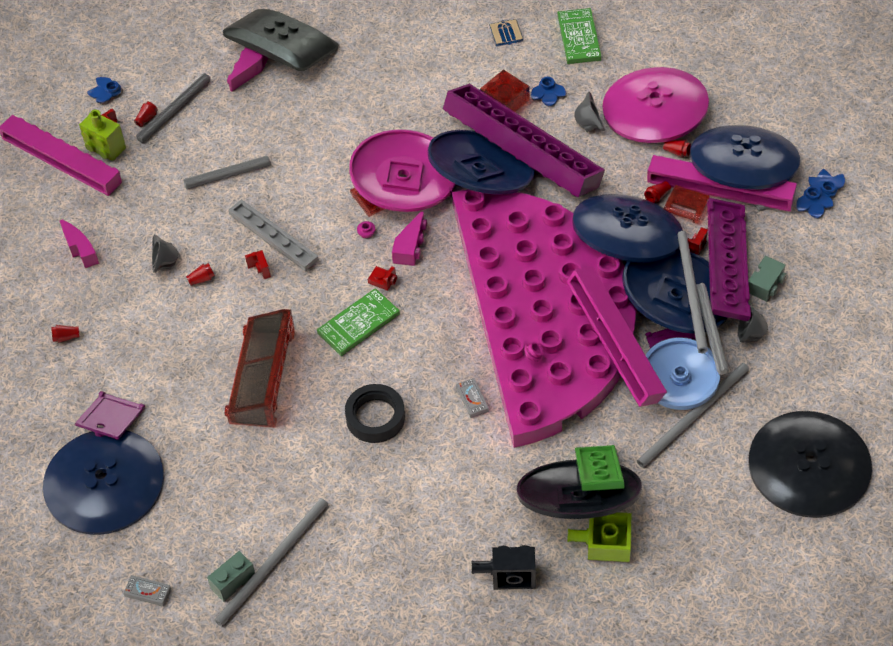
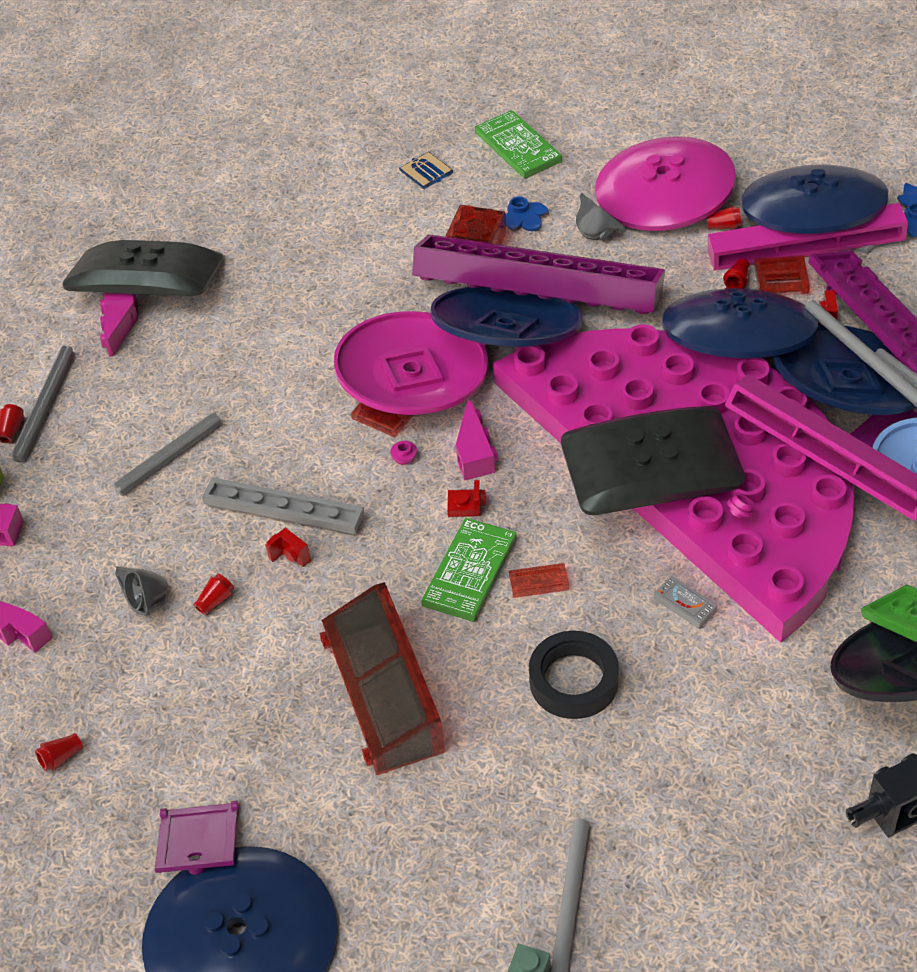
camera: 25 degrees left, 5 degrees down
(394, 346) = (538, 580): none -> clear red tile
(500, 297) = (651, 459): none -> pearl dark grey wedge

